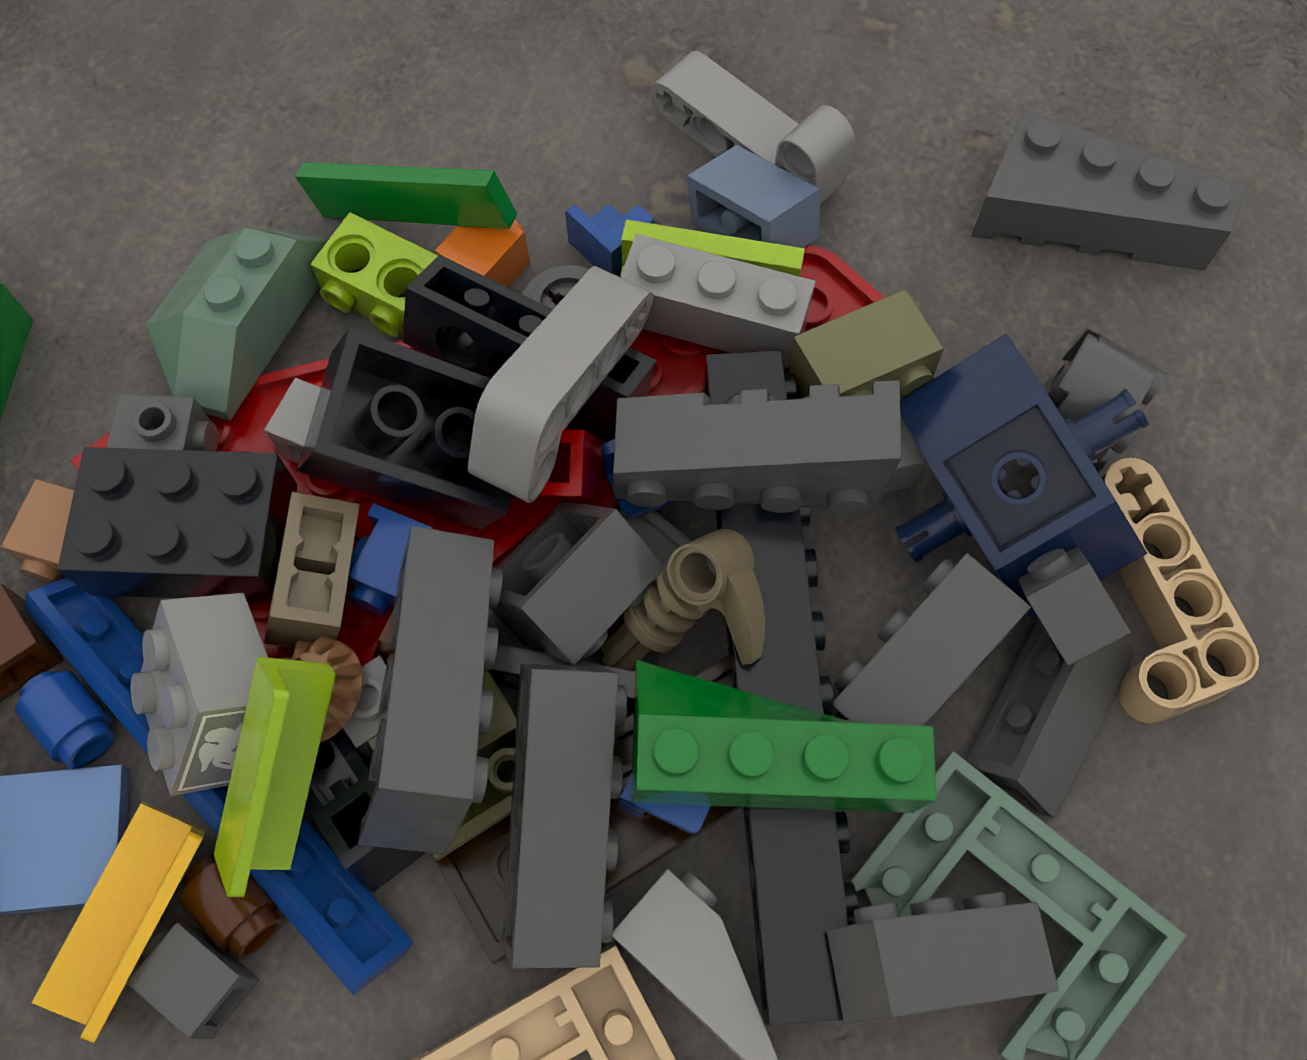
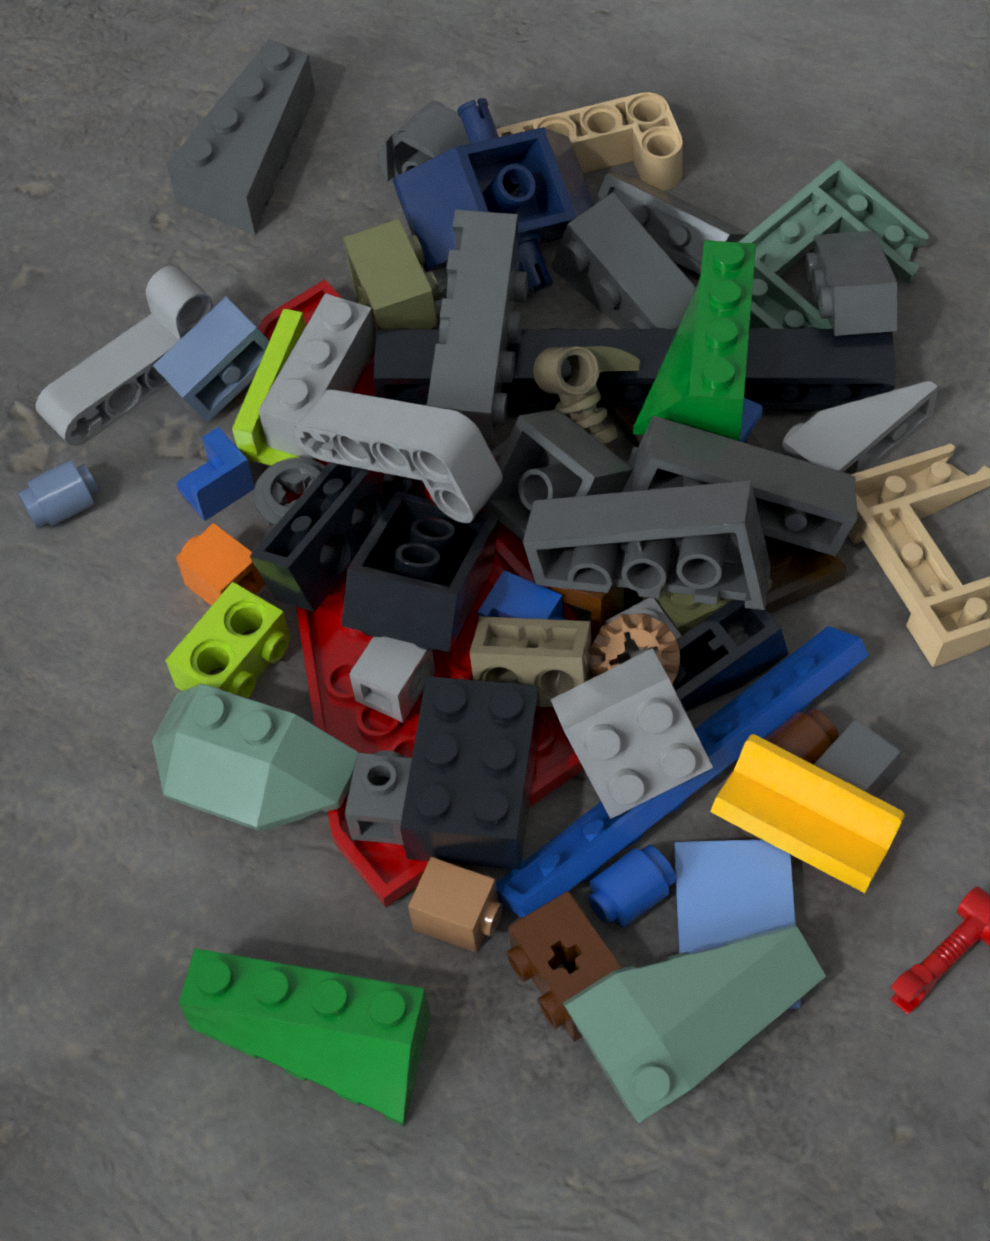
camera: 80 degrees left, 10 degrees down
(272, 768) = (713, 655): lime panel -> none
(408, 194) = (159, 610): green tile -> none
(578, 95) = (58, 494): none -> sand blue brick
(1072, 603) = (608, 169): dark grey brick -> none

